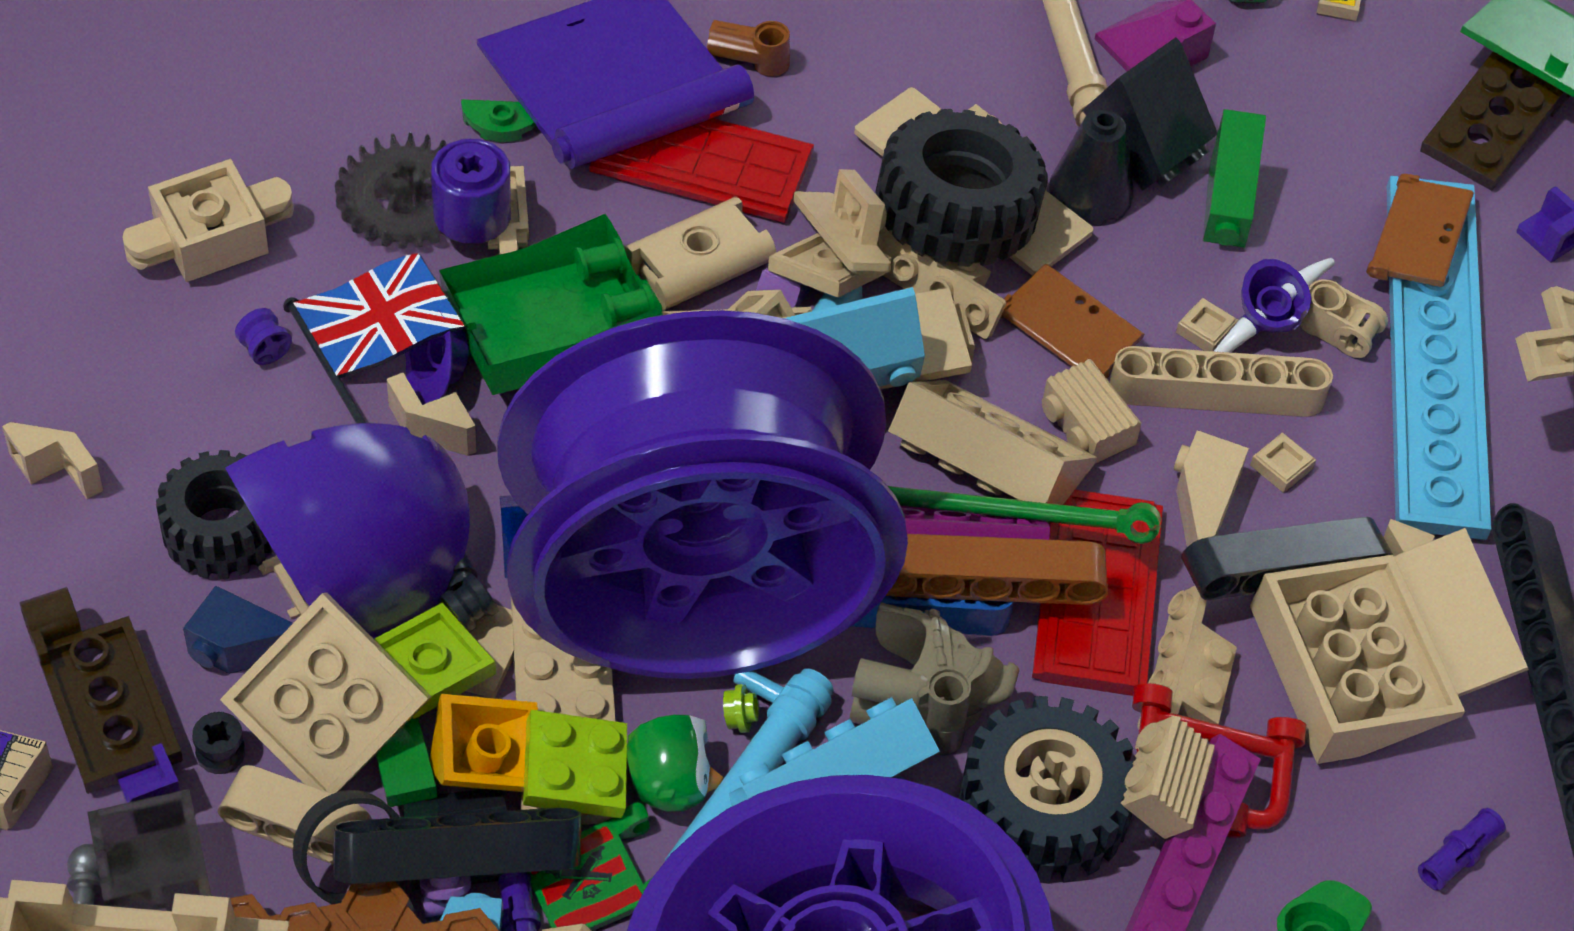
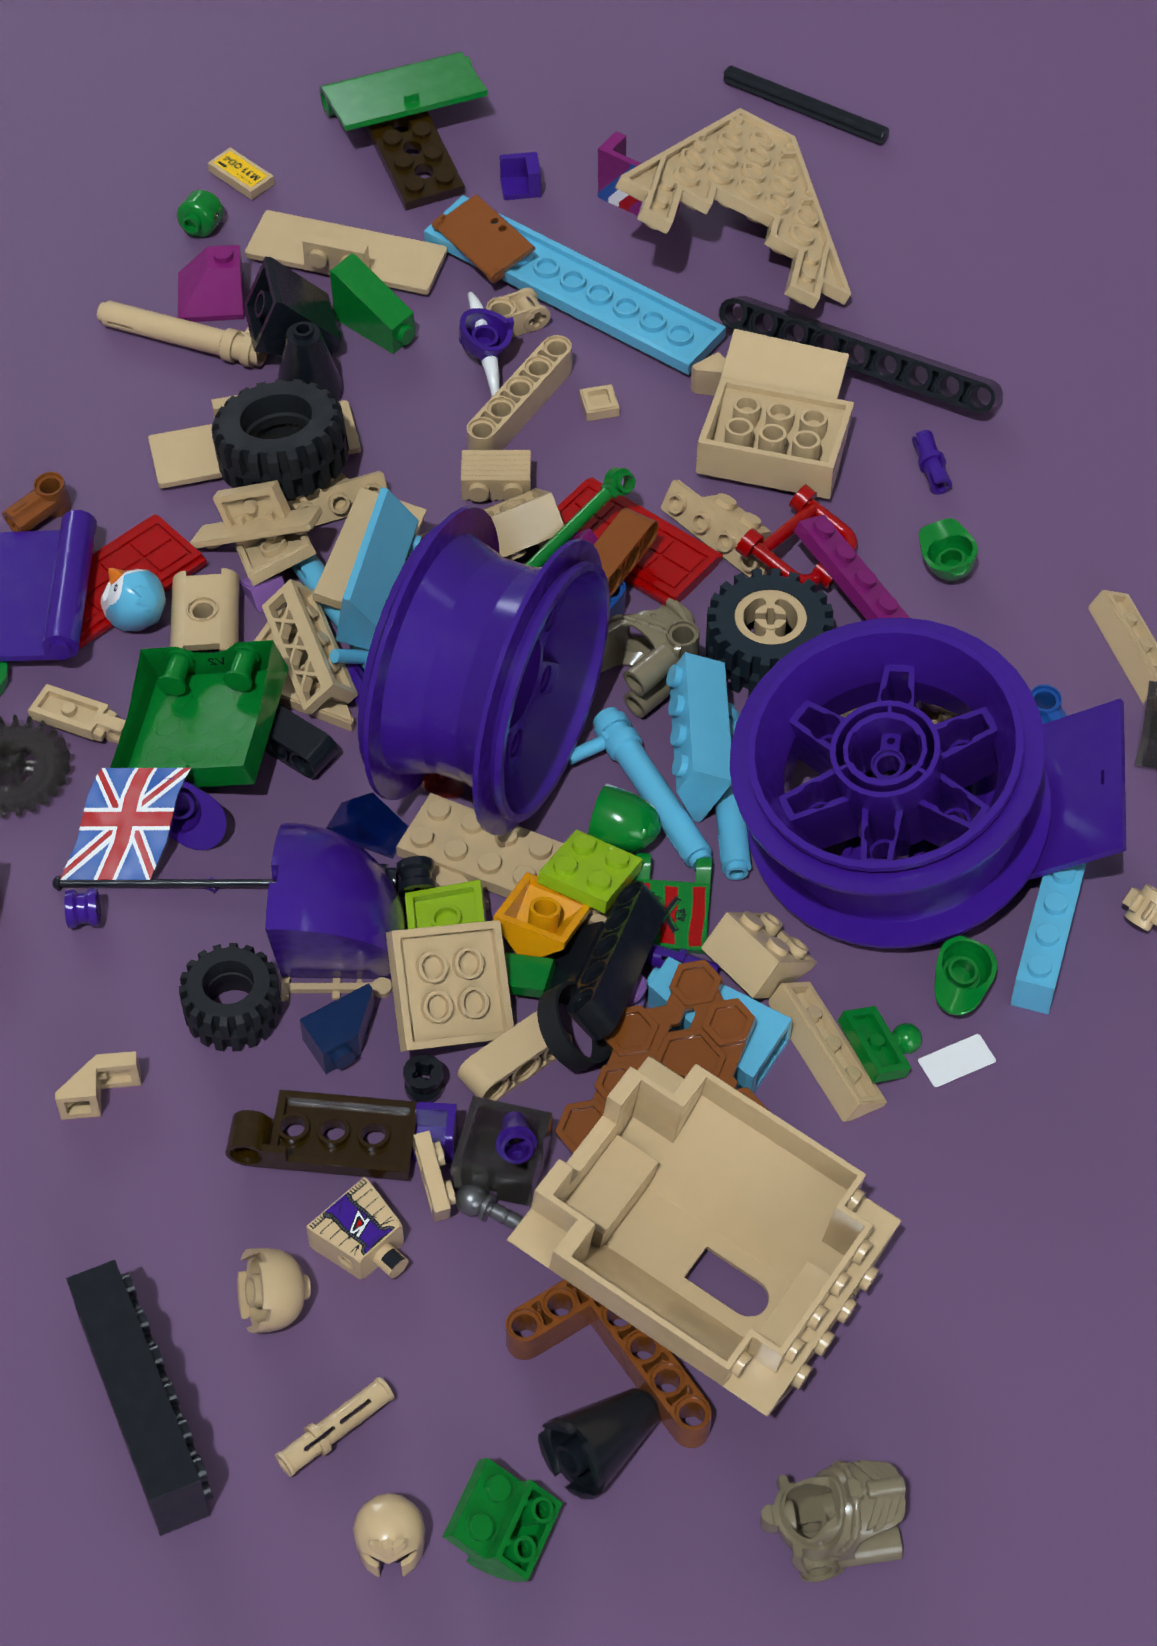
camera: 55 degrees left, 0 degrees up
(69, 822) = (438, 1192): none -> tan plate
(144, 853) = (515, 1140): none -> dark purple cone
(441, 419) = (247, 830): tan slope -> none
(471, 190) = (65, 713): dark purple piece -> none
(674, 178) = (133, 599): none -> medium azure piece
(740, 708) = (597, 768): lime plate -> none
(1072, 331) = (431, 451): dark orange door -> none
(1168, 776) = (816, 559): tan brick -> none
(1206, 325) = (466, 385): tan tile -> none
(1207, 483) = (599, 446): tan slope -> none
(1237, 562) = (682, 430): beam -> none
(1308, 128) = (323, 245): none -> tan bracket

